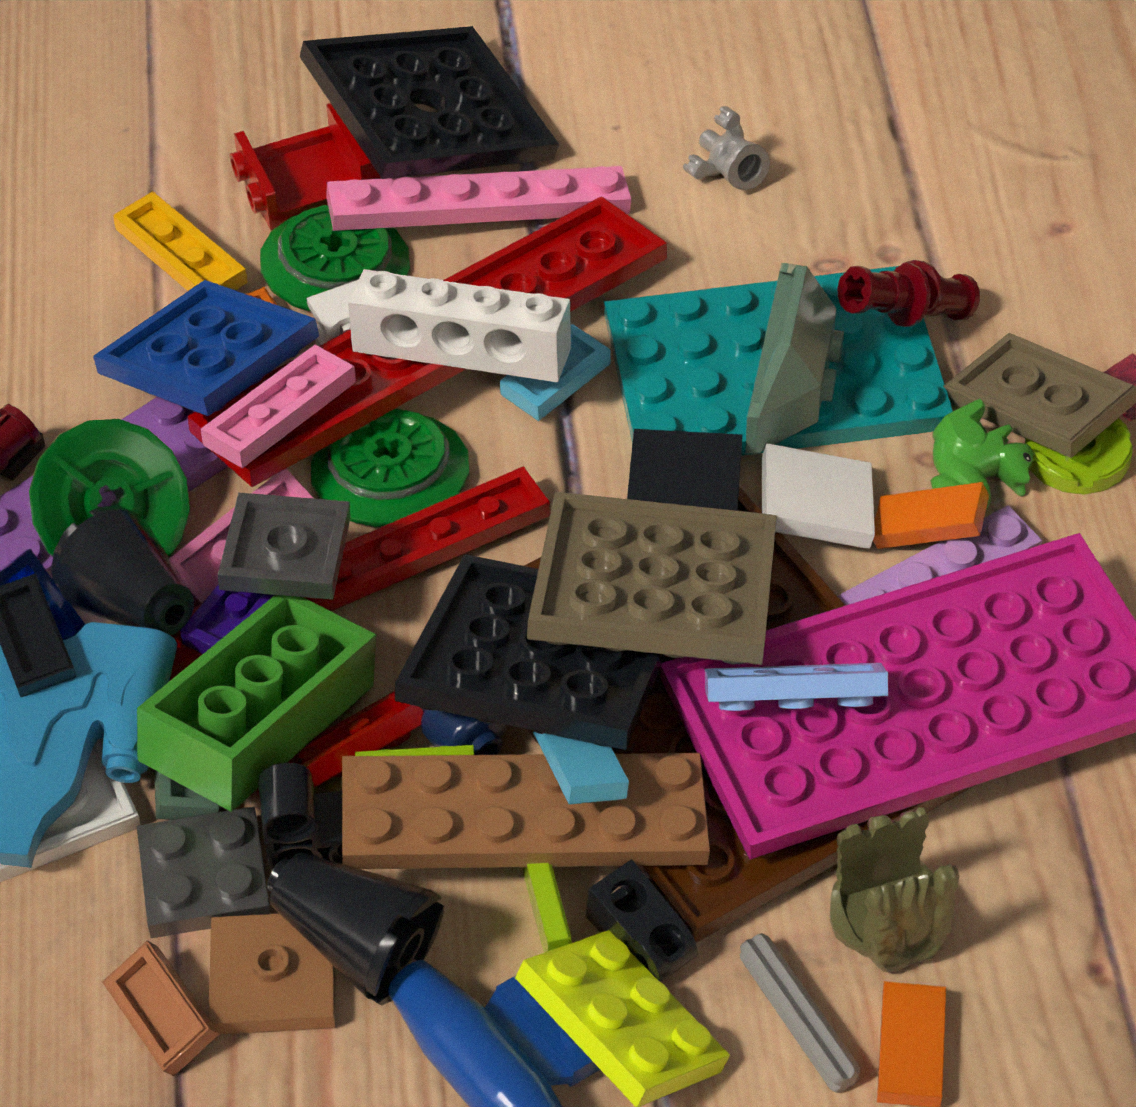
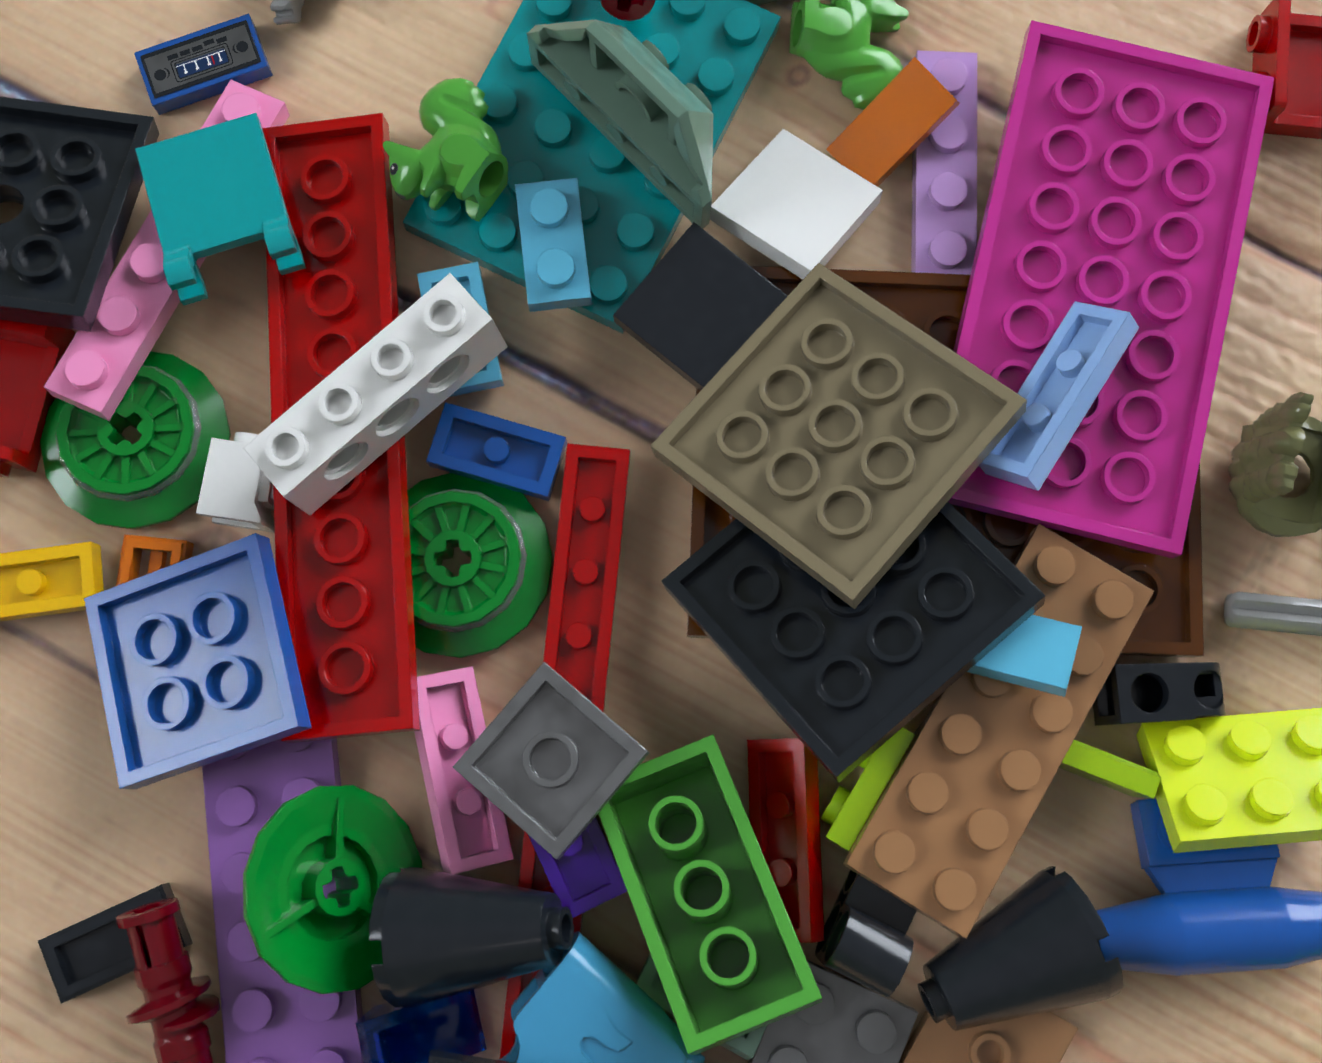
camera: 60 degrees left, 30 degrees up
(278, 406) = (354, 649): bright pink plate -> none
(484, 435) = (497, 451): none -> blue plate
(526, 189) = (213, 196): none -> teal flag
(612, 144) = (202, 64): none -> tile
(656, 376) = (553, 244): none -> medium azure plate
(669, 290) = (459, 157): none -> bright green animal

